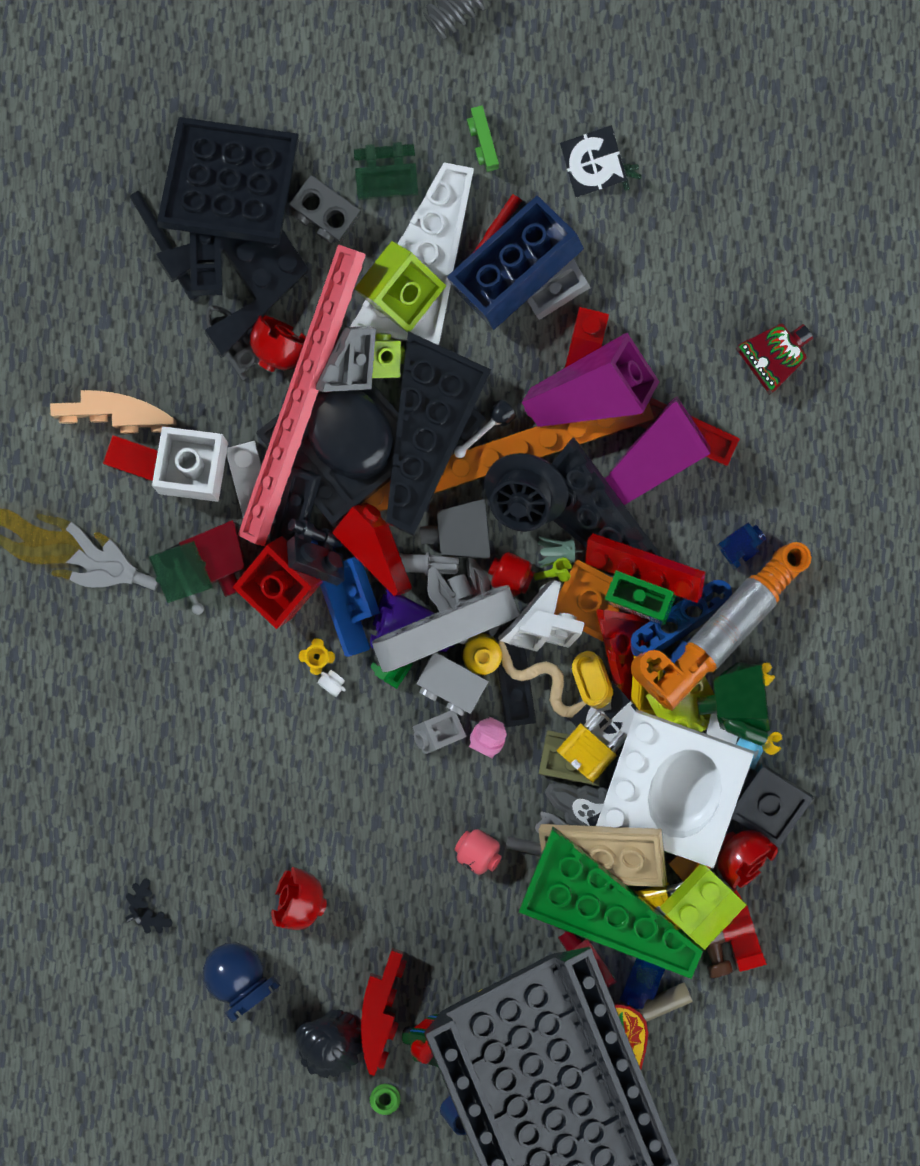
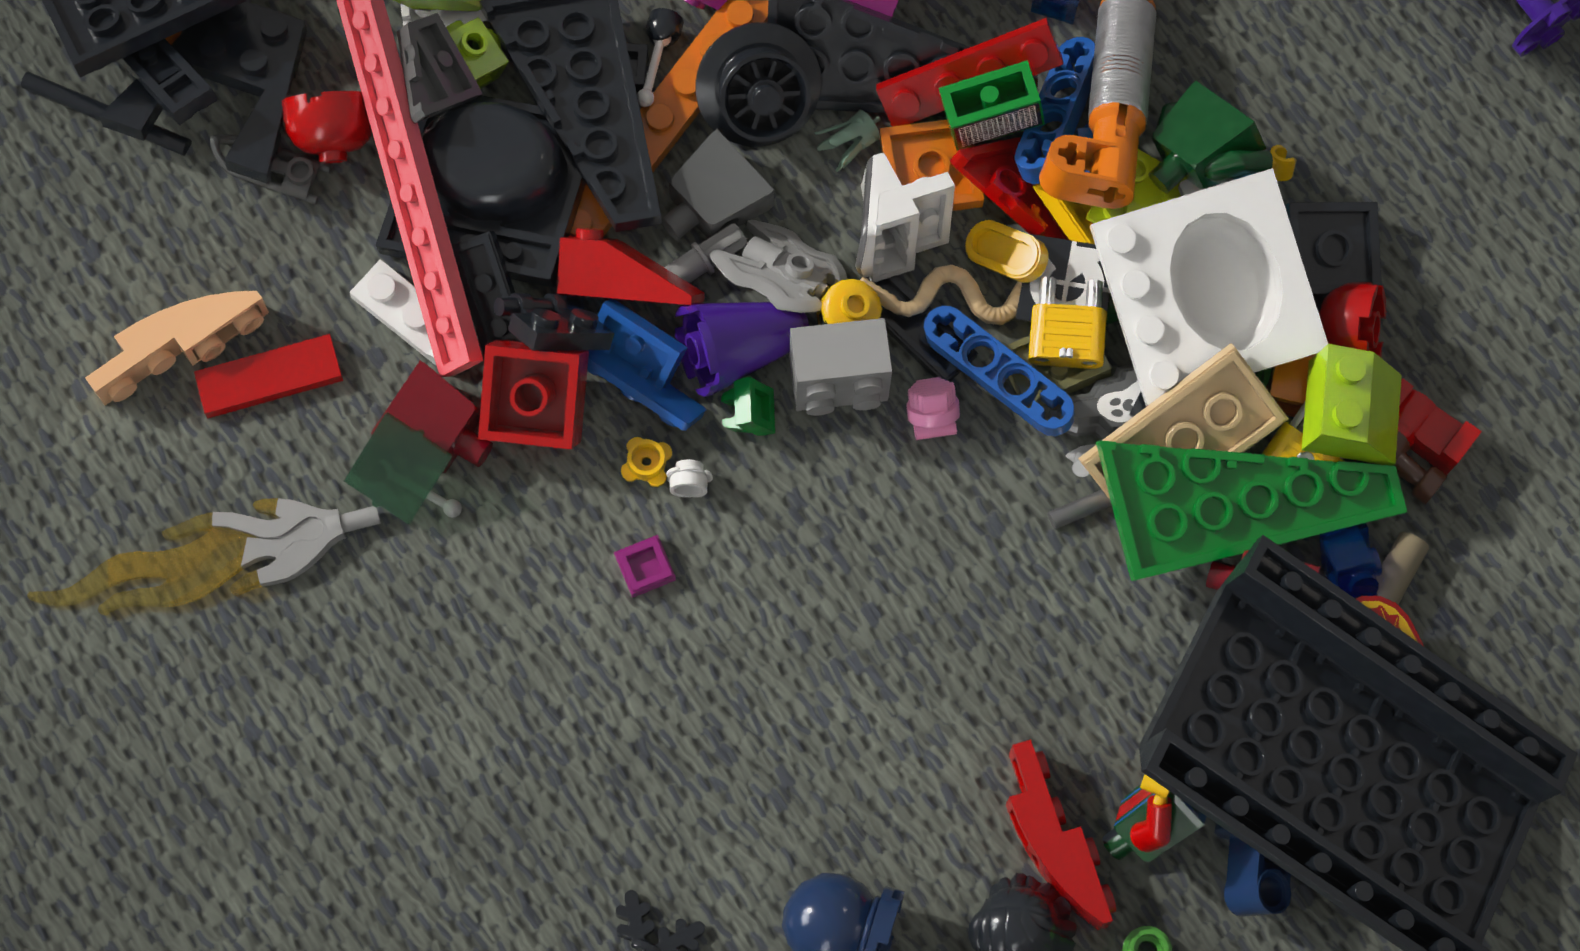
camera: 40 degrees left, 15 degrees down
(190, 464) = (317, 329): white brick -> none
(275, 713) = (644, 566): none -> magenta tile
(299, 900) = (847, 762): red cylinder -> none
(438, 732) = (865, 445): light grey bracket -> none
(445, 628) = (782, 296): light grey beam -> none
(478, 851) = (1026, 552): coral head -> none
(511, 571) = (814, 199): red head -> none
(535, 745) = (1003, 365): none -> blue beam
(559, 570) = (867, 145): lime hand -> none

